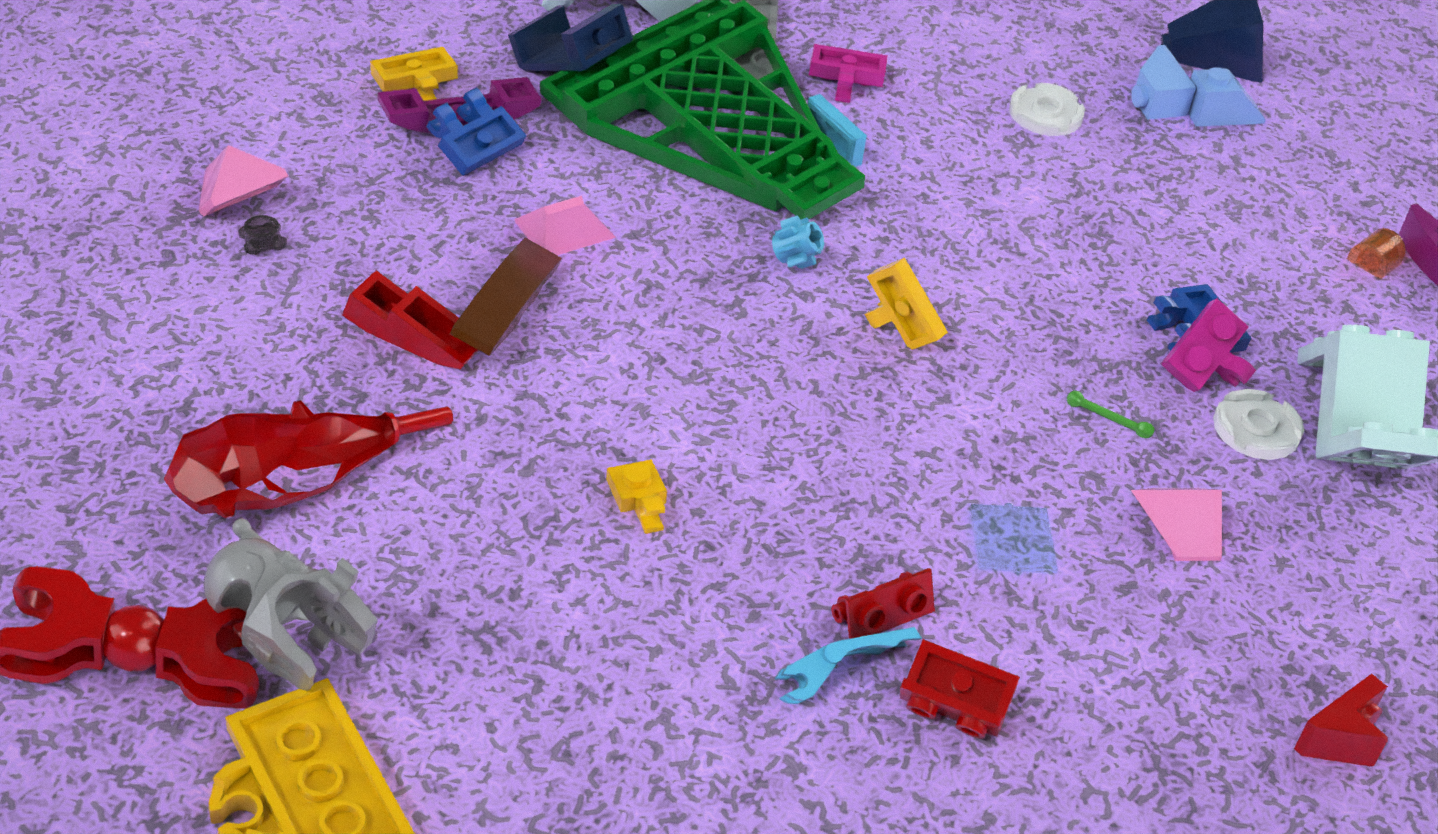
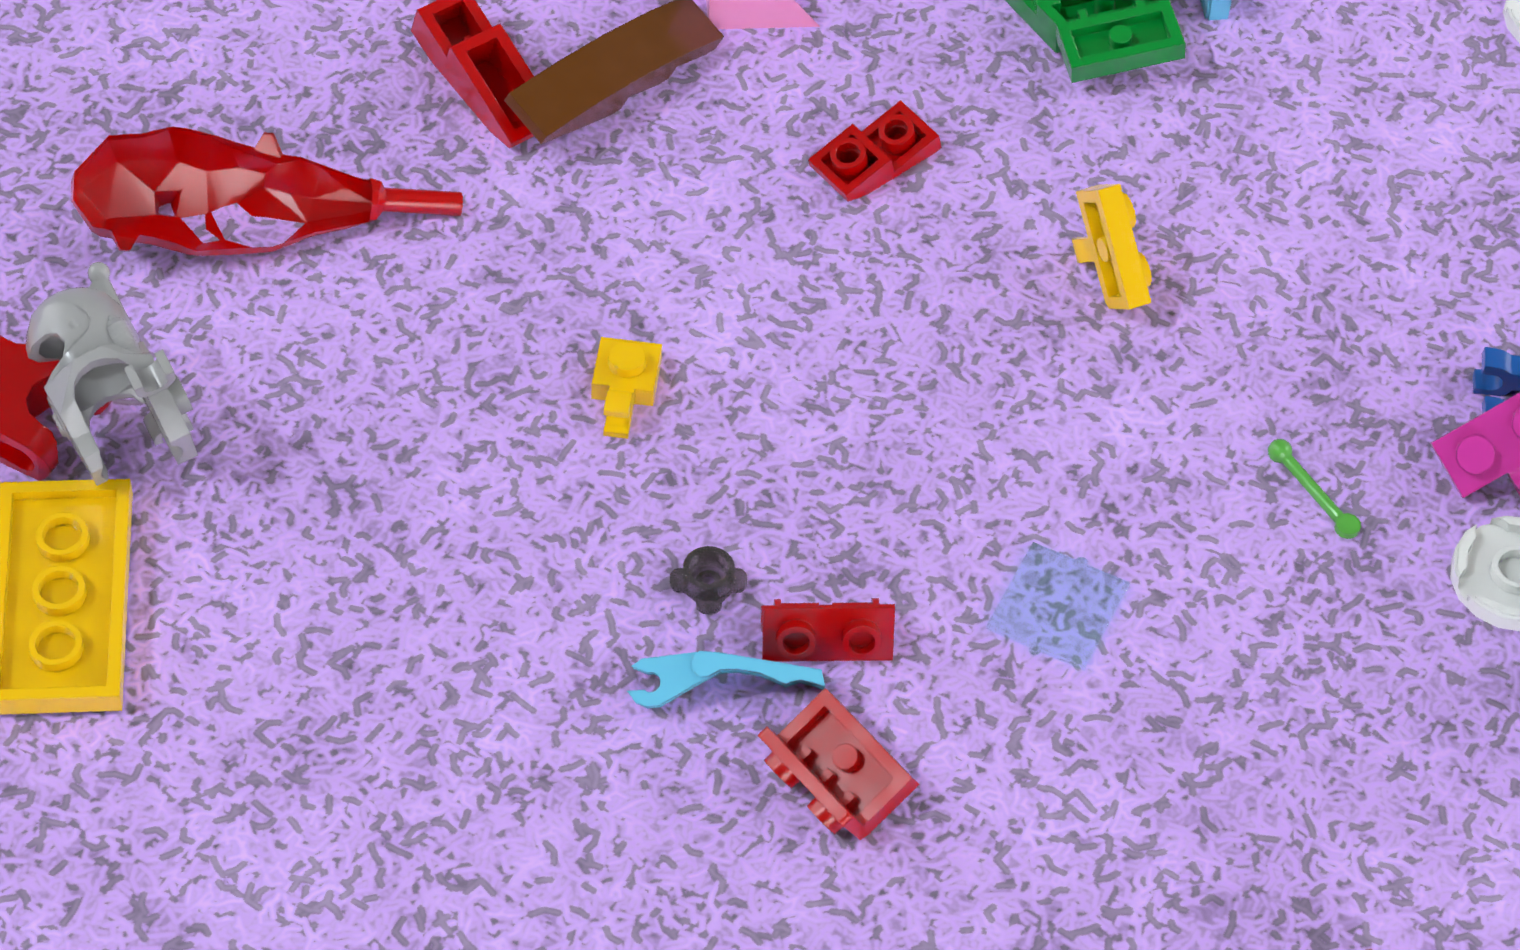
camera: 30 degrees right, 10 degrees up
(707, 299) = (867, 159): none -> red slope
(785, 589) = (712, 563): none -> clear smoke plate
(798, 242) = (1041, 110): medium azure gear -> none
(1186, 520) = (1290, 659): bright pink slope -> none

